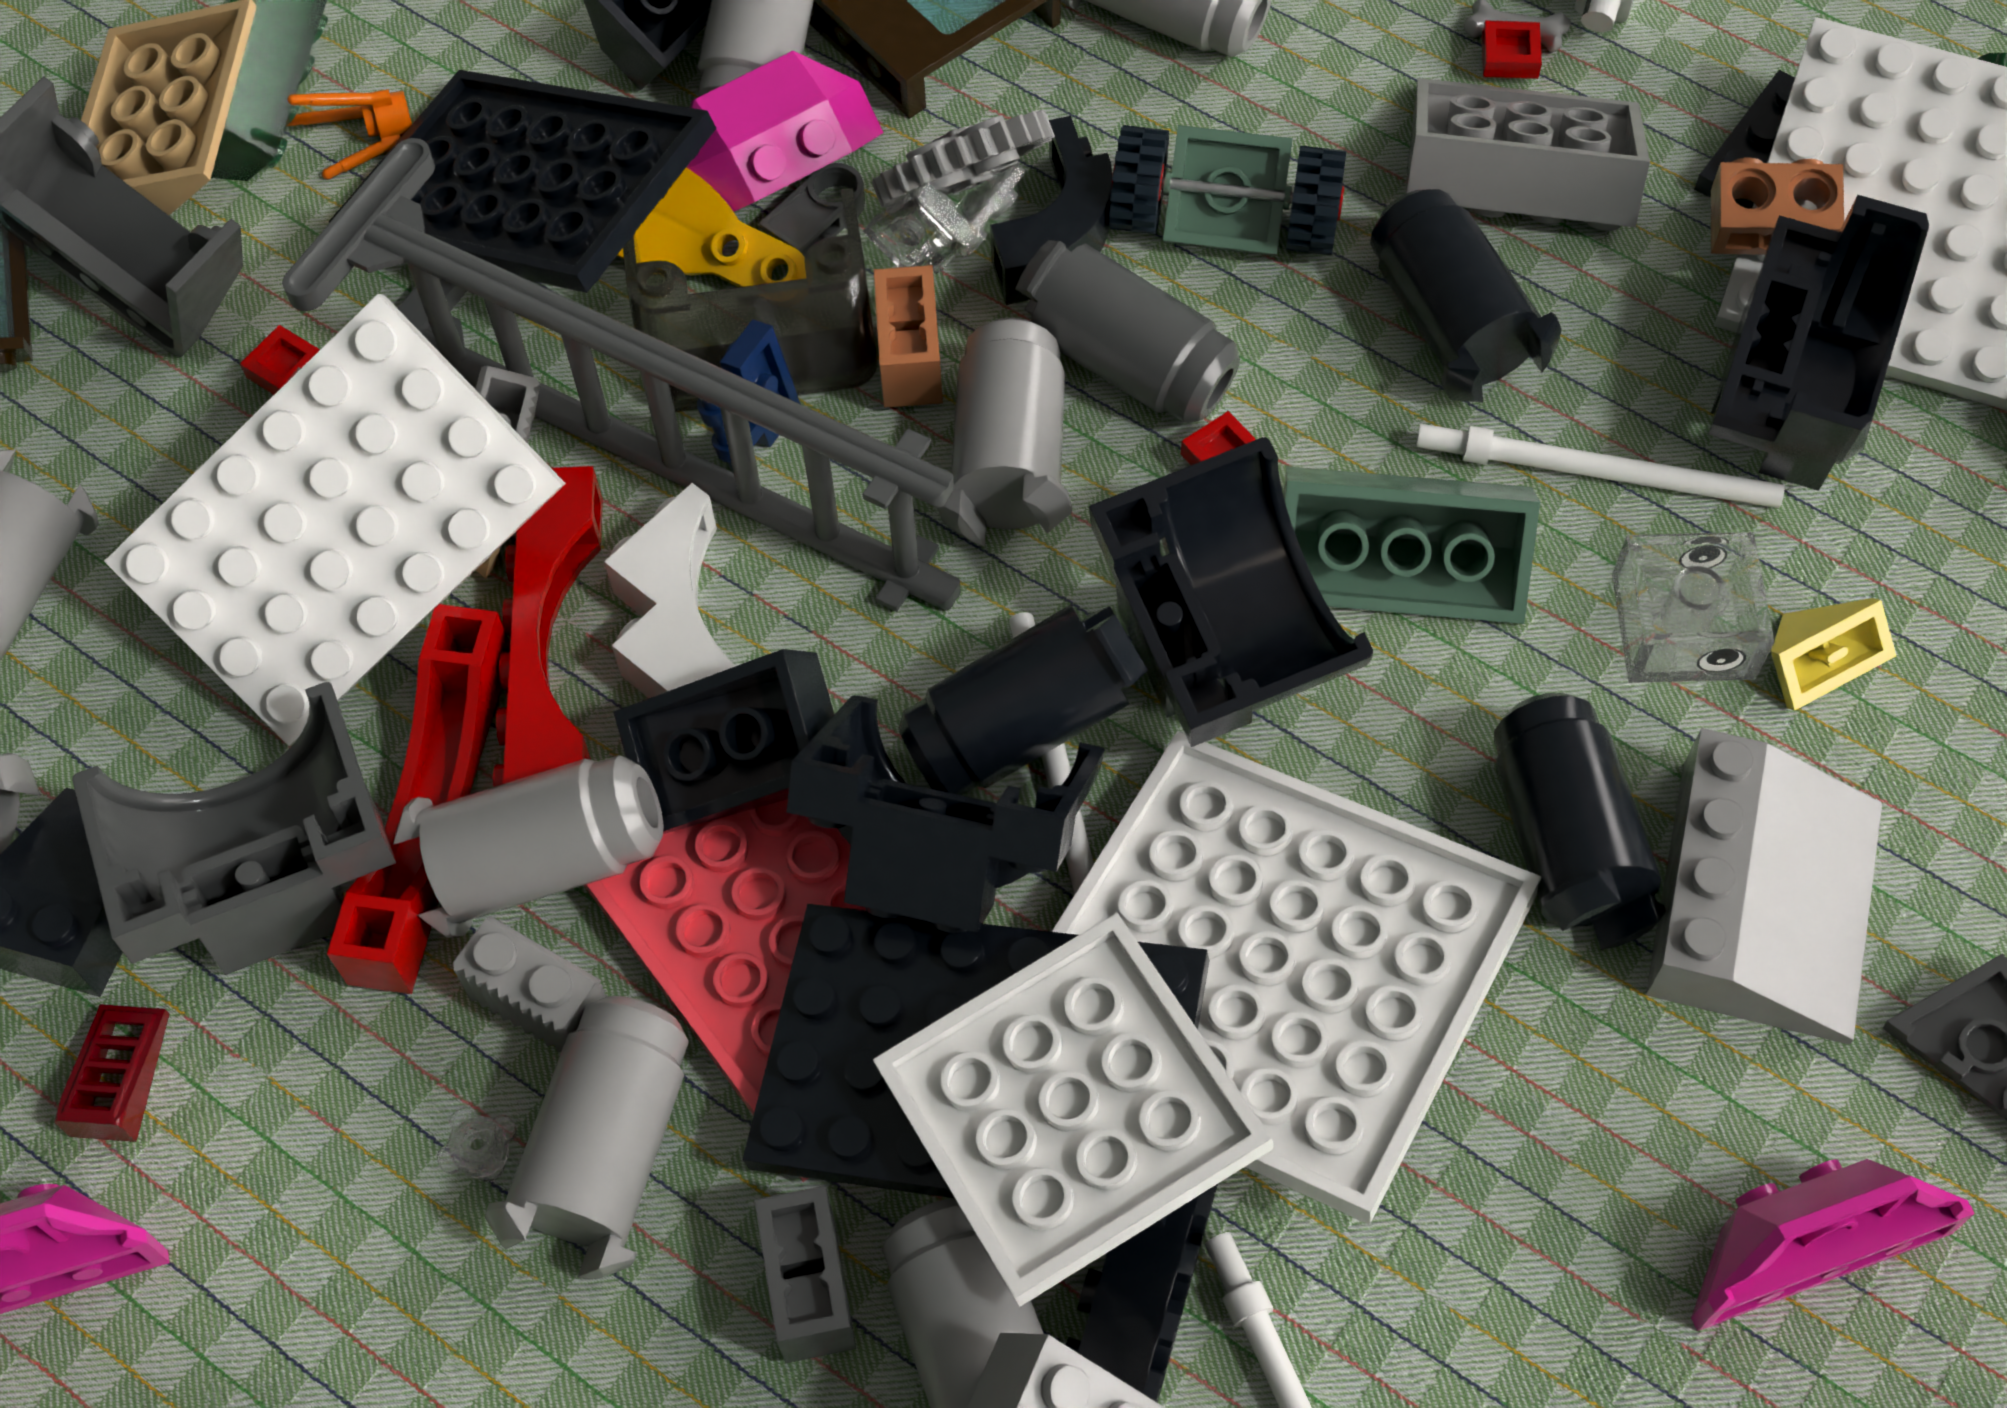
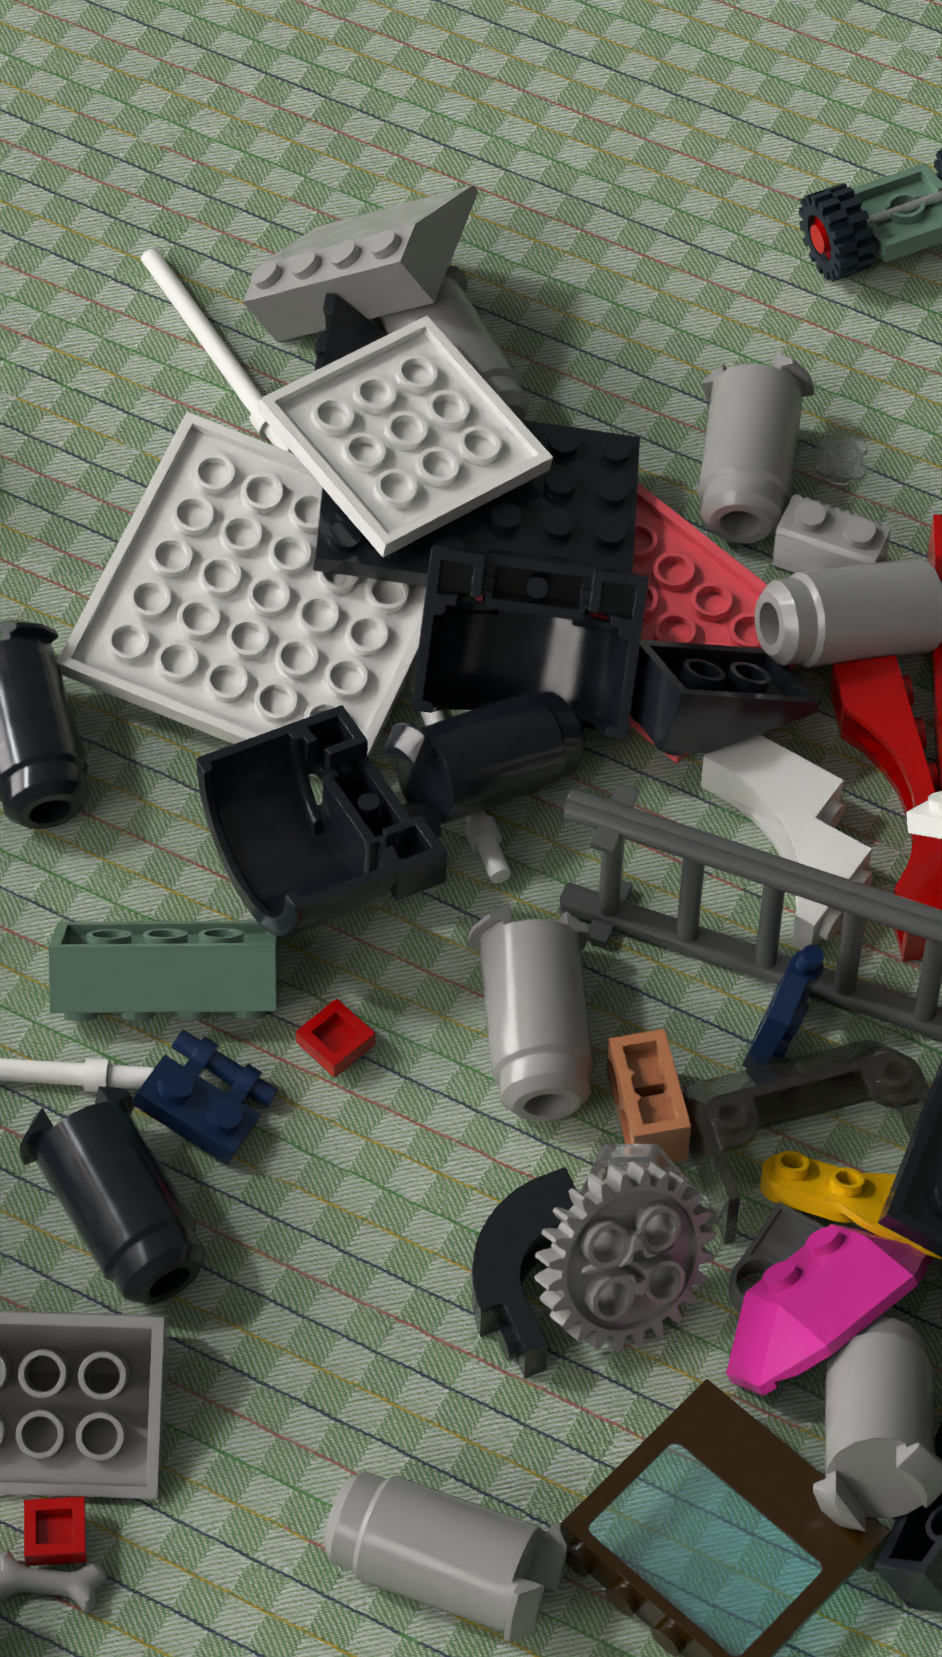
camera: 170 degrees right, 5 degrees down
(804, 1274) = (579, 380): dark grey brick -> none
(1129, 331) = (437, 1115): dark grey piece -> none
(1226, 190) = (352, 1289): plate -> none
(1370, 386) = (199, 1109): none -> dark blue plate

